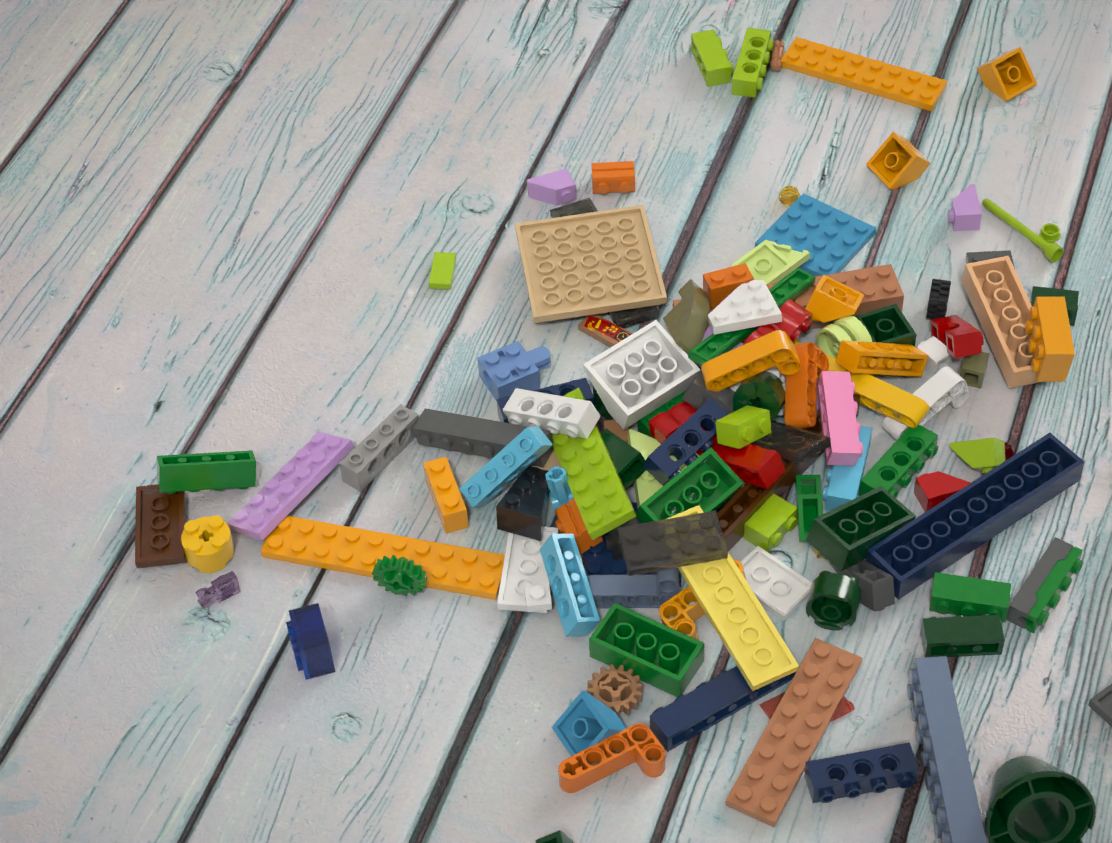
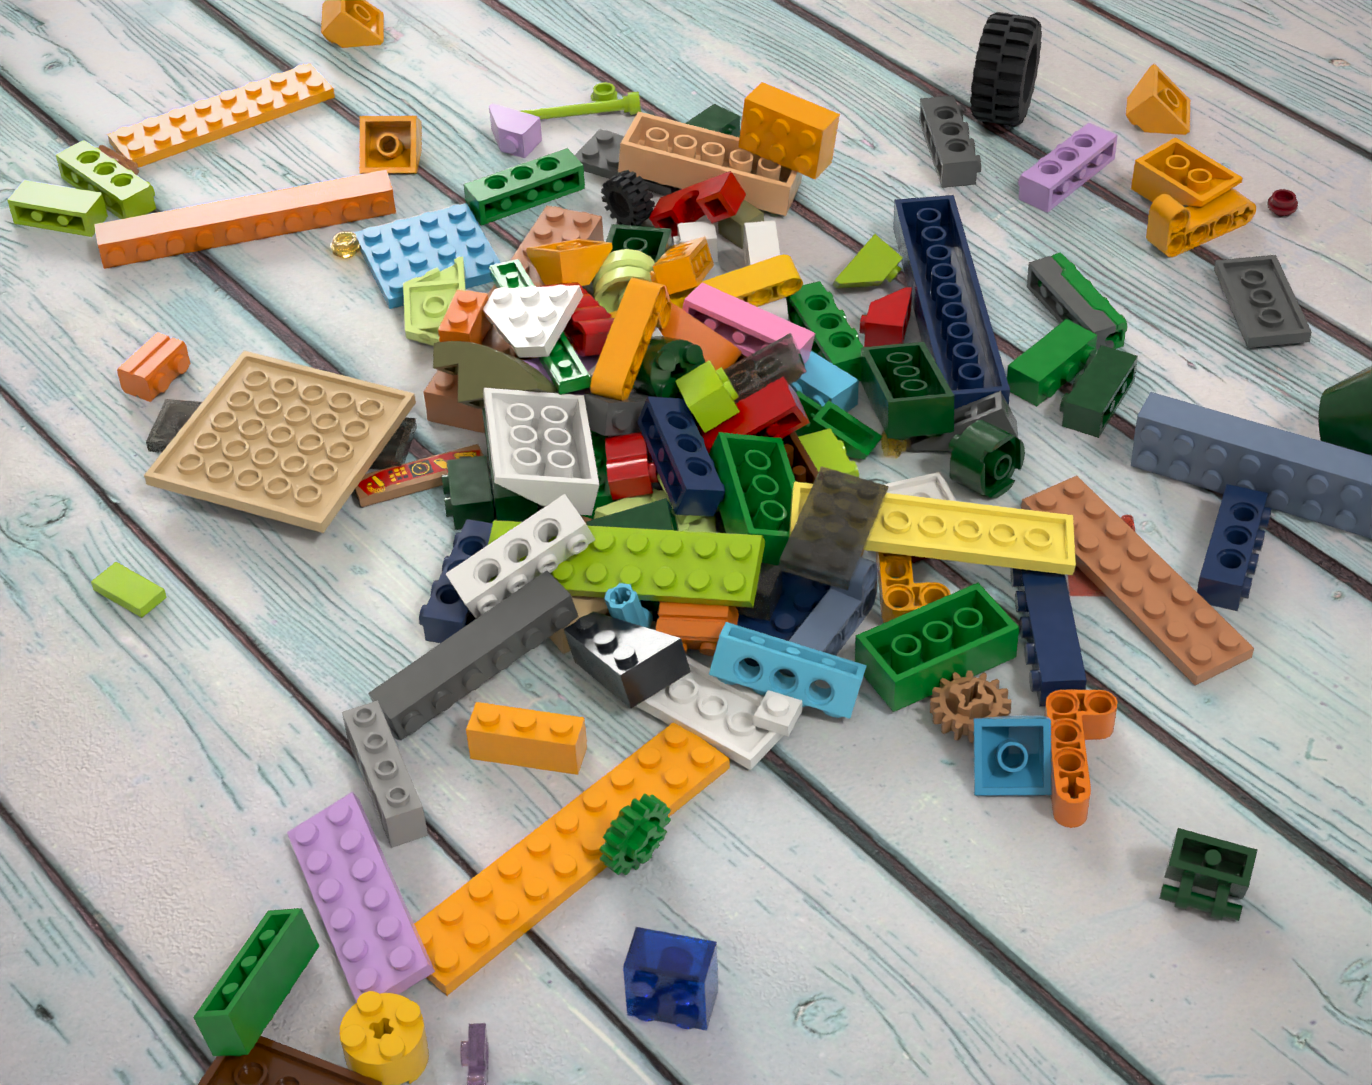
camera: 60 degrees left, 5 degrees down
(505, 466) = (562, 639): medium azure brick -> none
(512, 369) = (380, 589): medium blue brick -> none
(553, 187) = (111, 424): lavender slope -> none
(774, 141) = (244, 219): none -> orange brick
(915, 245) = (524, 186): none -> green brick

